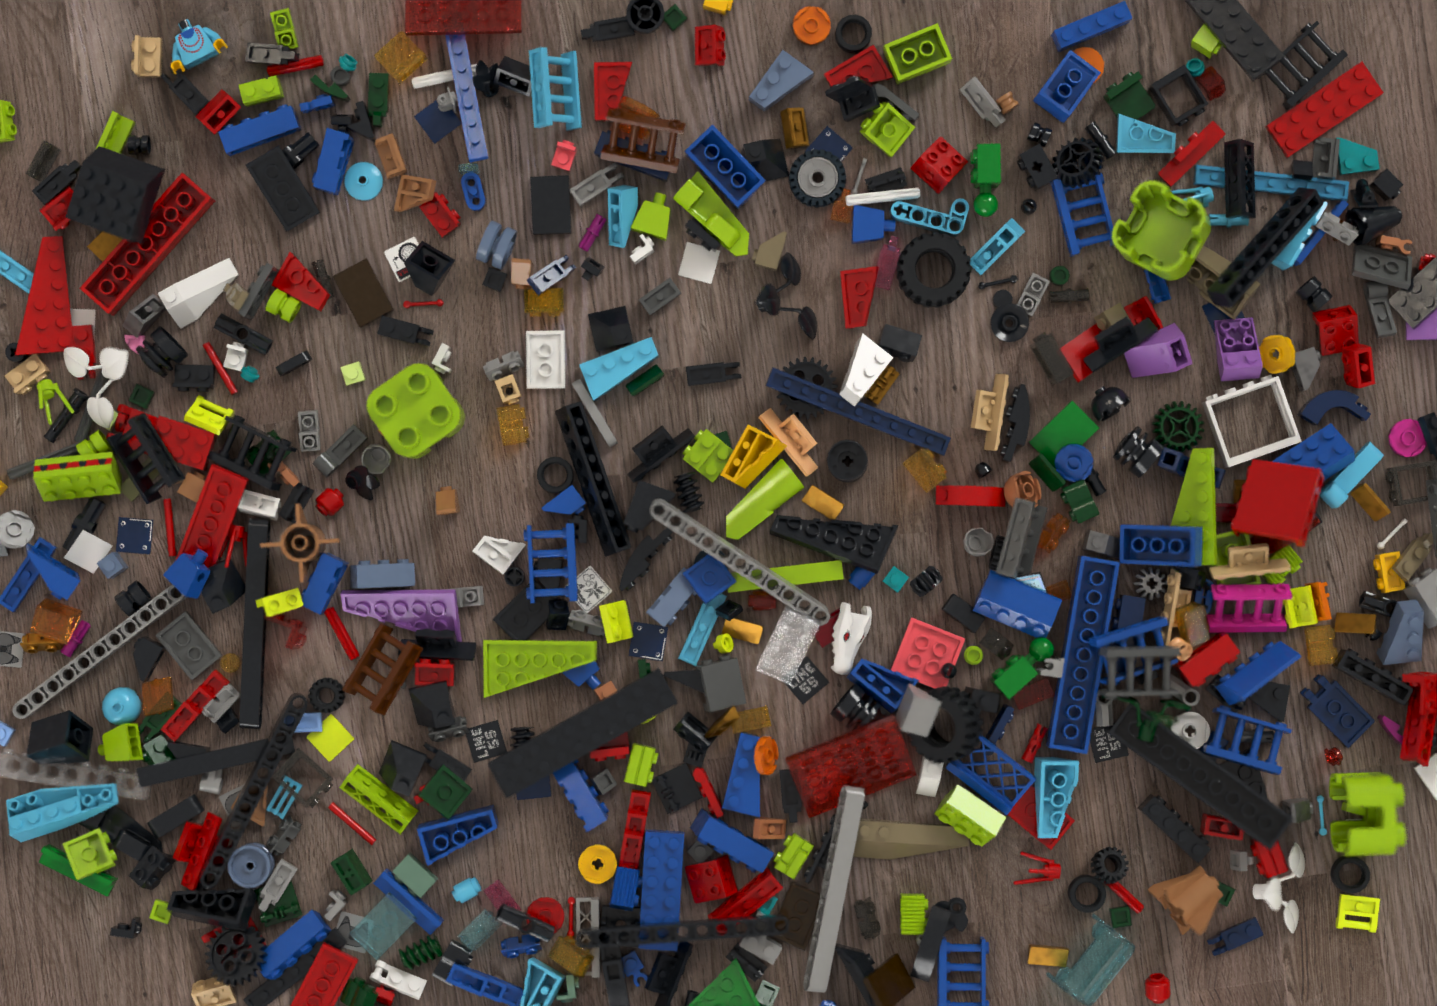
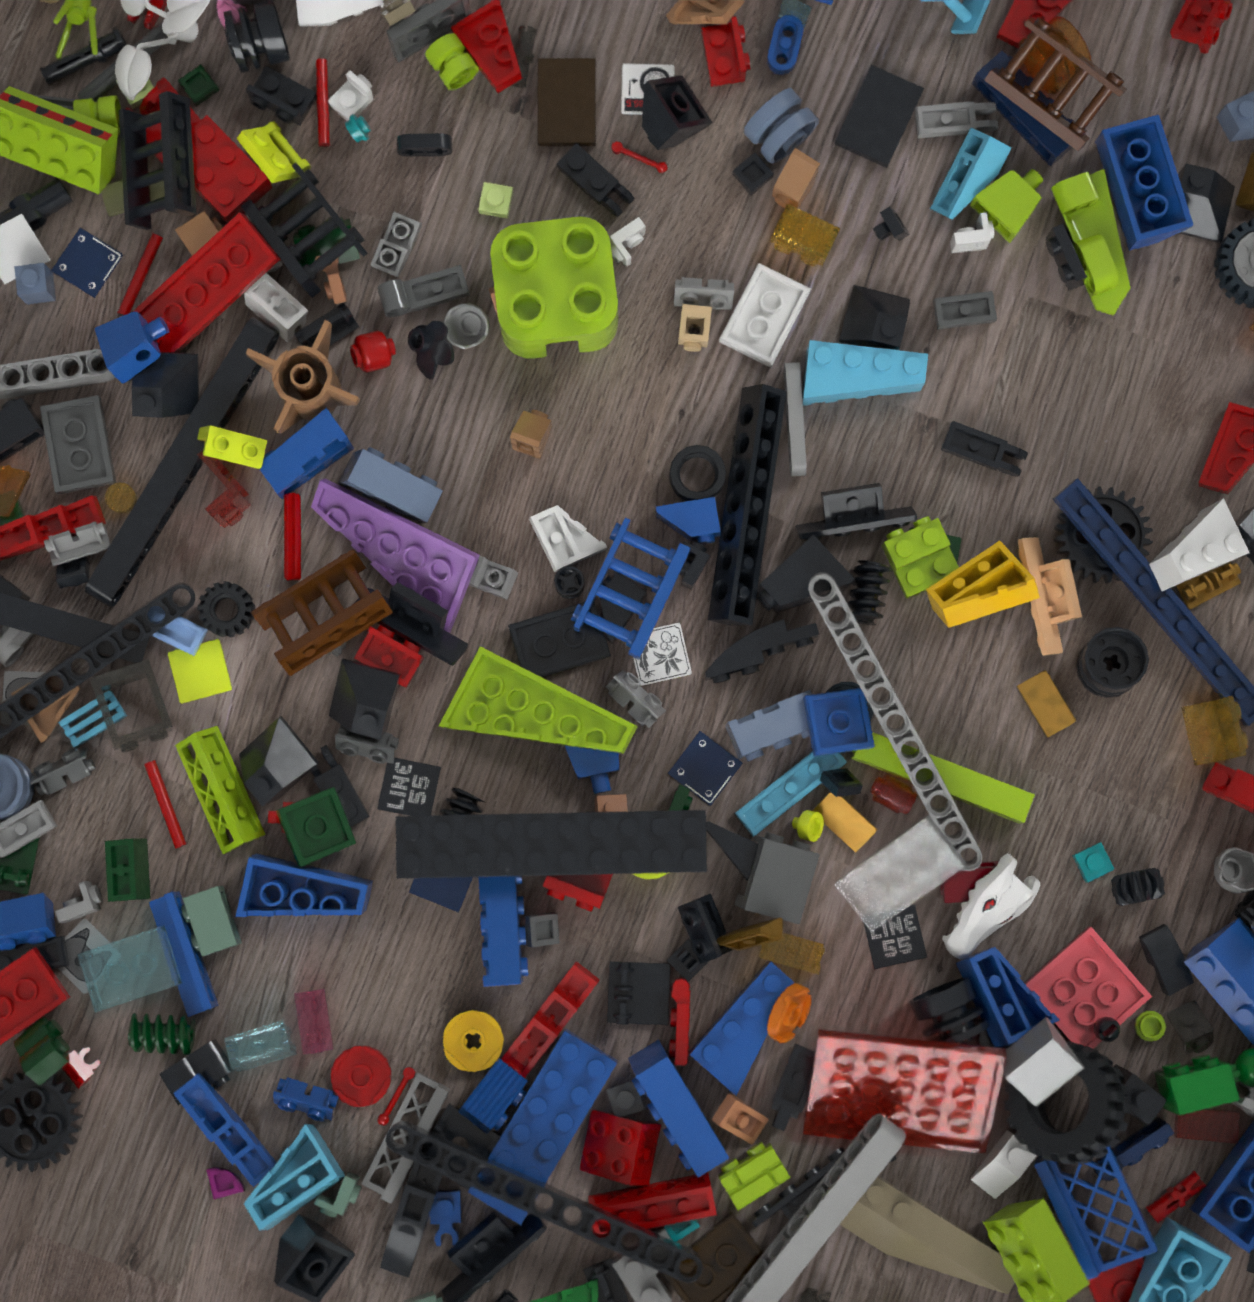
camera: 25 degrees right, 5 degrees down
(133, 598) = (37, 341): black wheel -> none
(233, 328) = (386, 85): black piece -> none
(235, 534) = (221, 328): red plant -> none
(398, 980) = (109, 1056): white plate -> none
(466, 890) = (271, 980): medium azure brick -> none
(512, 424) = (674, 377): clear yellow brick -> none
(535, 927) = (339, 1084): black piece -> none
(550, 275) = (832, 203): hinge -> none
(557, 615) = (600, 665): black bracket -> none
(564, 155) = (932, 60): coral bracket -> none
(571, 956) = (367, 1152): clear yellow brick -> none
(592, 232) = (916, 179): magenta axle -> none
(616, 621) = (676, 716): neon yellow bracket -> none
(640, 764) = (605, 933): lime brick -> none
(644, 380) = (885, 412): dark green slope -> none
(698, 263) = (1039, 294): white sticker -> none
(762, 501) = (965, 656): lime panel -> none
(770, 252) = (1145, 328): dark tan slope -> none
(770, 301) = (1118, 392): black plant -> none
(843, 540) = (1048, 768): black wing -> none
(860, 577) = (1050, 831): blue brick -> none

